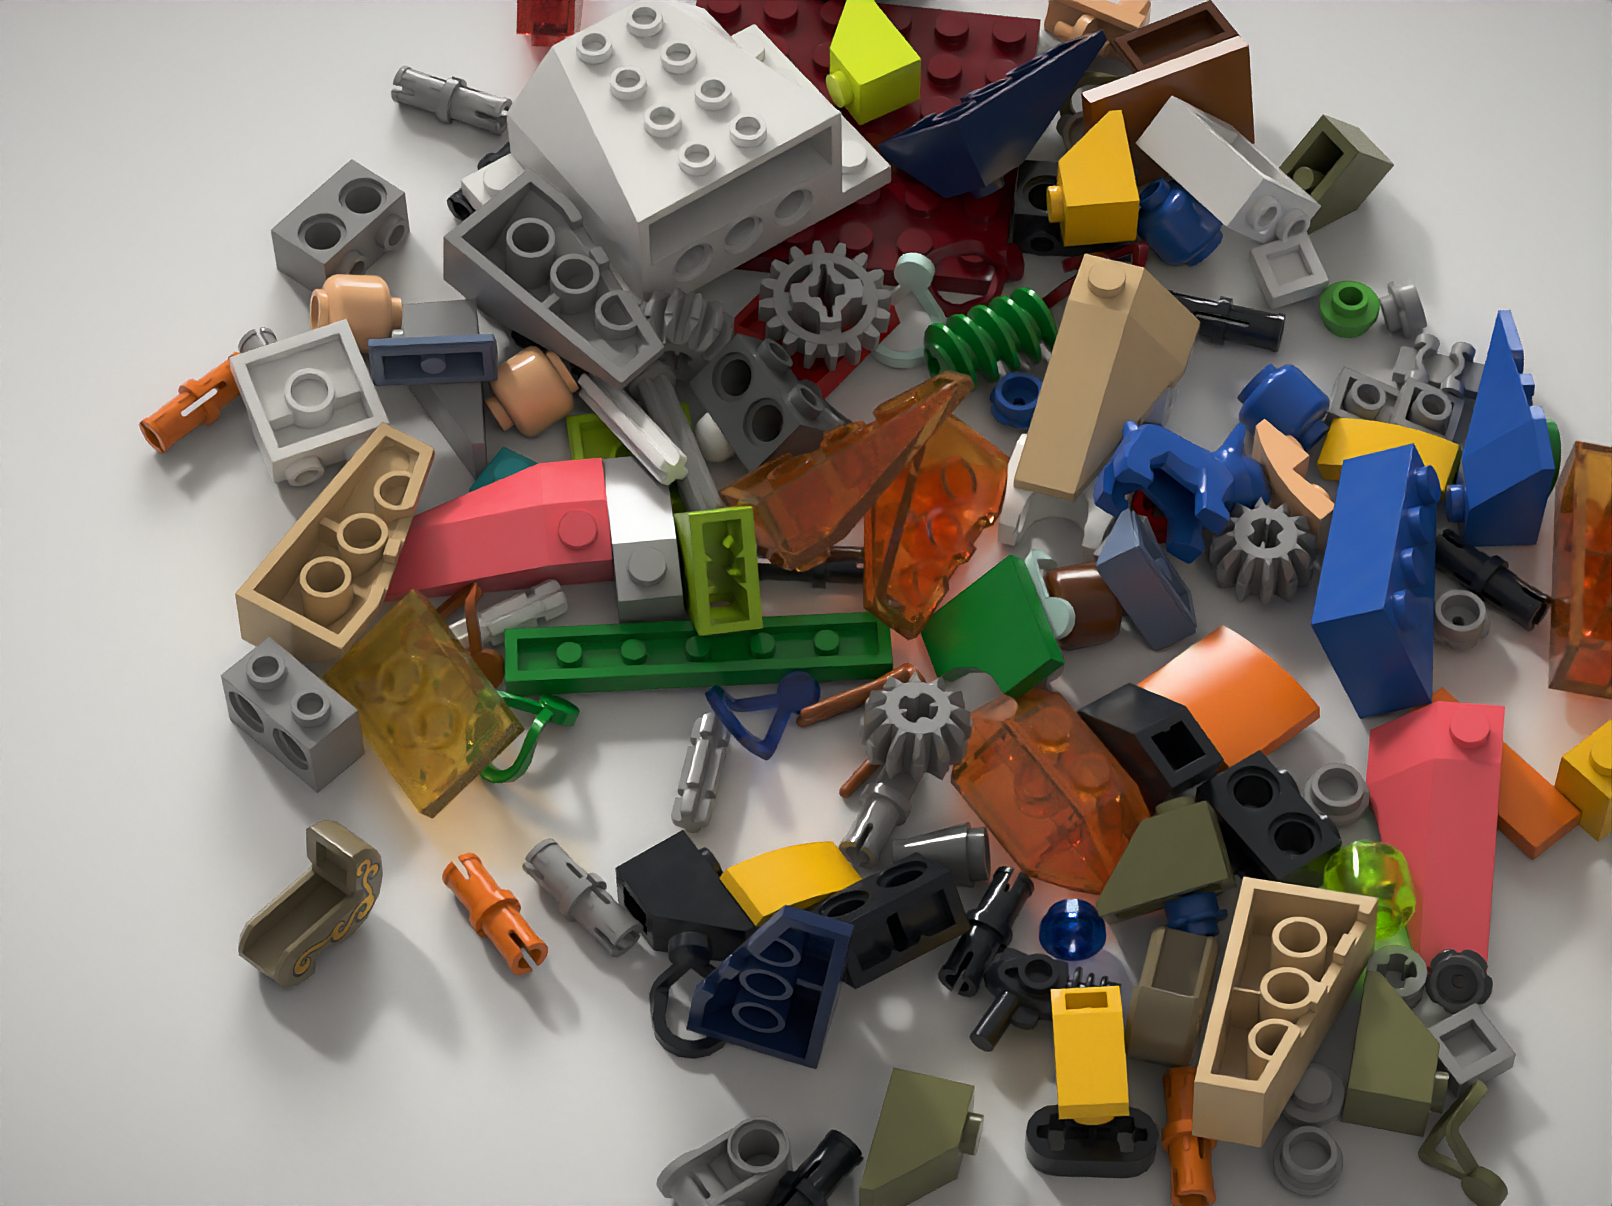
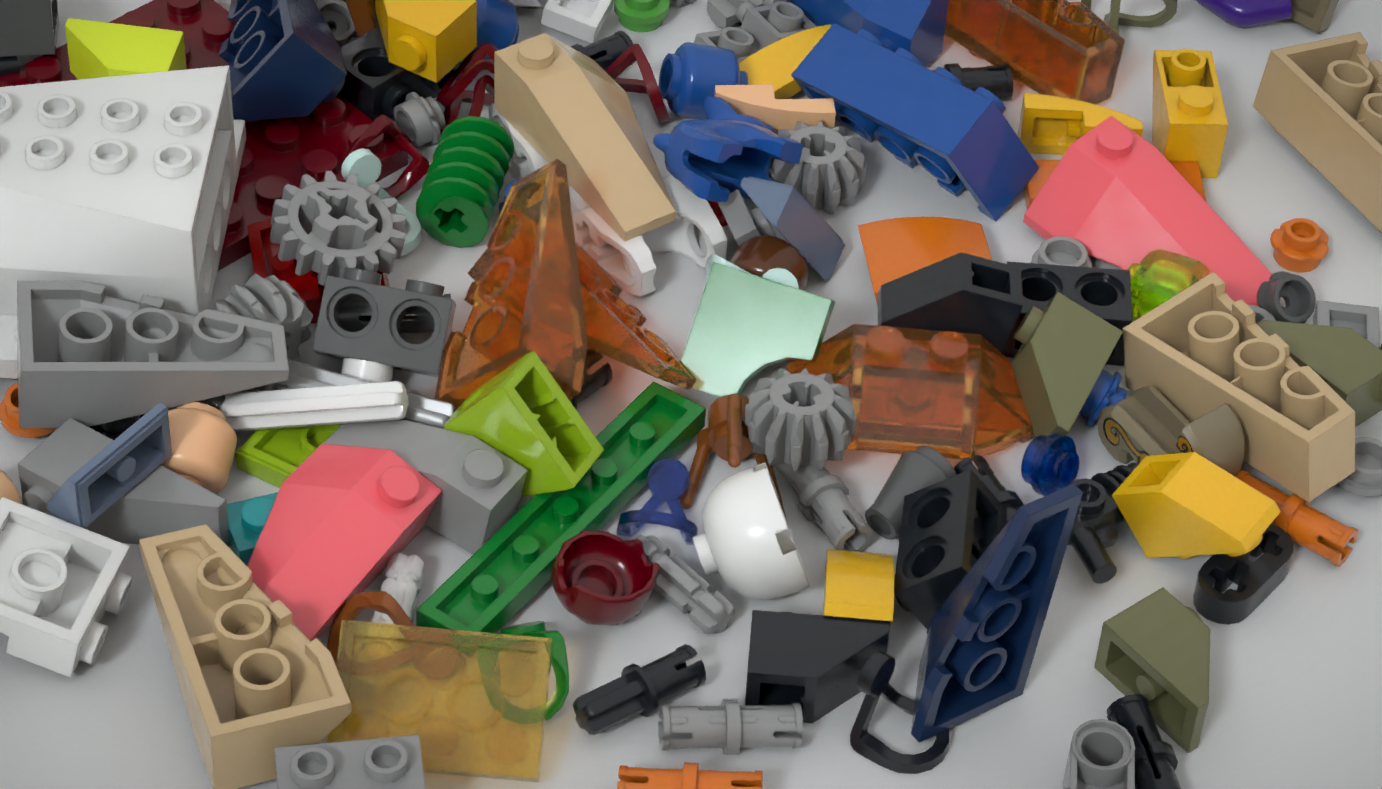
camera: 55 degrees left, 10 degrees down
(564, 817) = (639, 690): none -> black axle
(646, 717) = (603, 577): none -> dark red hair
(779, 784) = (750, 537): none -> white cylinder
(1038, 267) = (420, 119): none -> light grey plate
(1214, 347) = (647, 85): none -> dark red piece
(1508, 683) = (1054, 122): none -> yellow slope
(1554, 965) = (1299, 245): none -> orange plate

